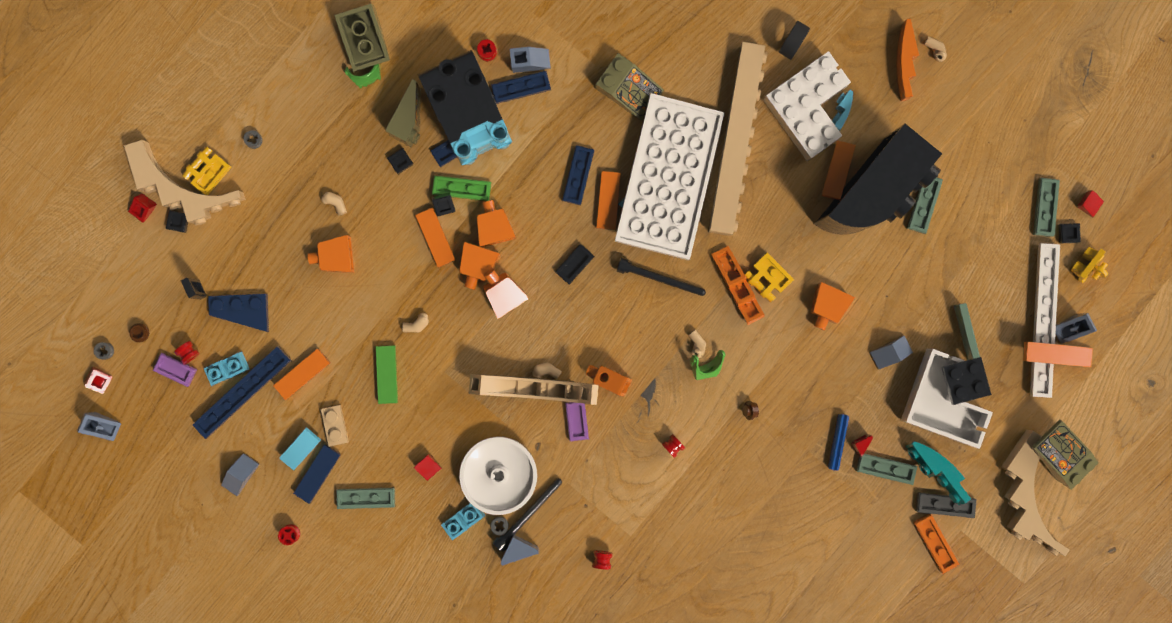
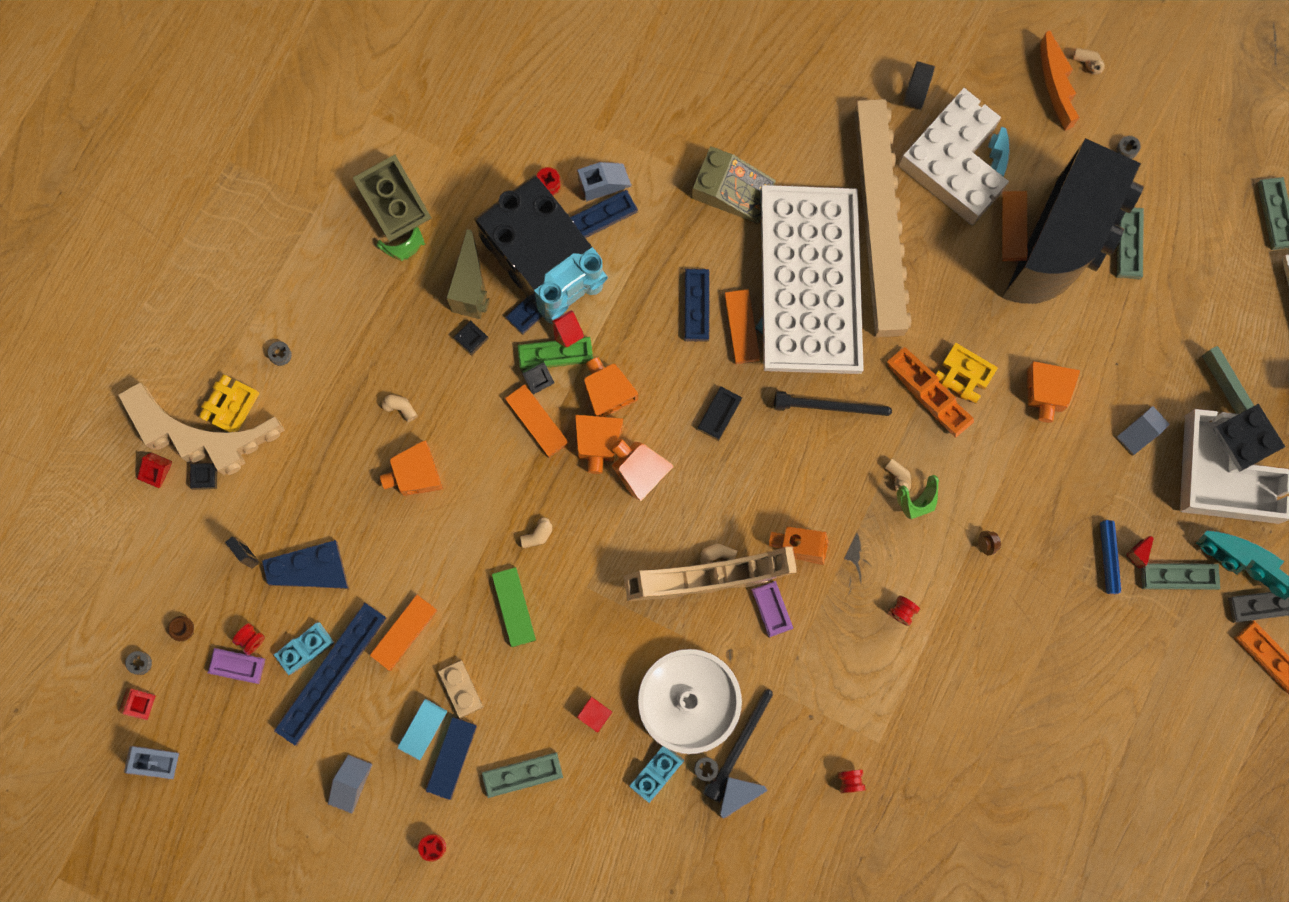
camera: 15 degrees left, 10 degrees down
(474, 173) = (567, 329): none -> red slope
(946, 133) = (1129, 140): none -> dark grey bush

